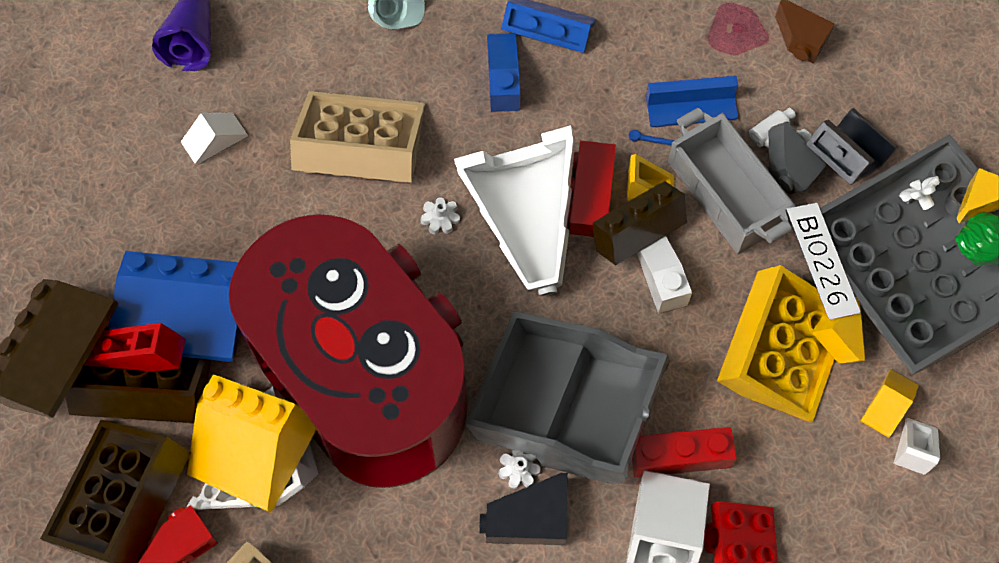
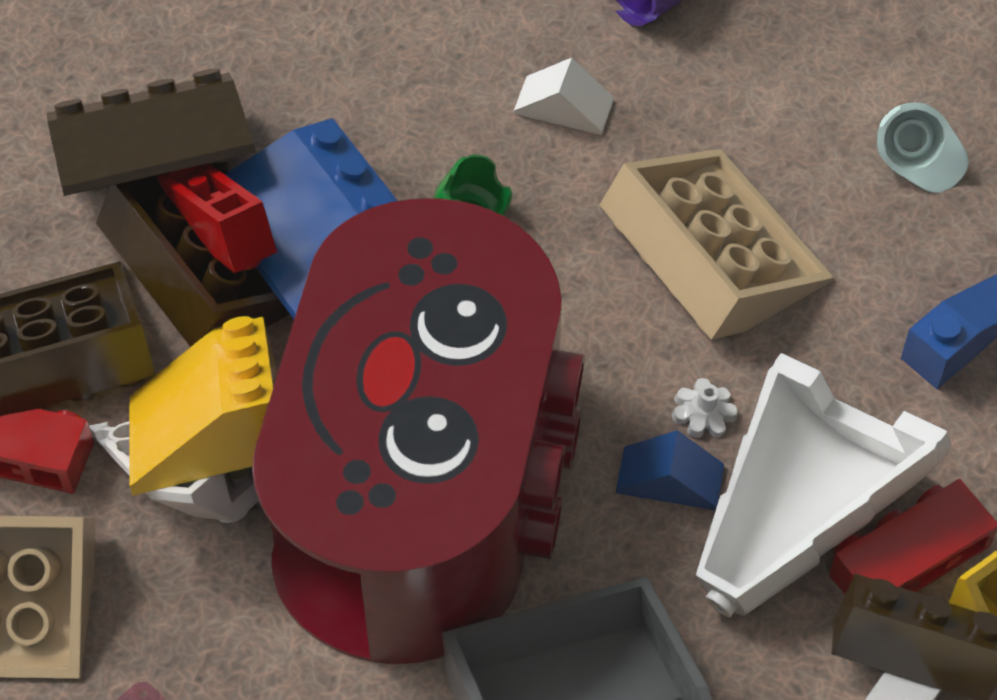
camera: 50 degrees right, 10 degrees down
(233, 225) = (475, 182): none -> green hair
(460, 257) = (671, 471): none -> blue slope

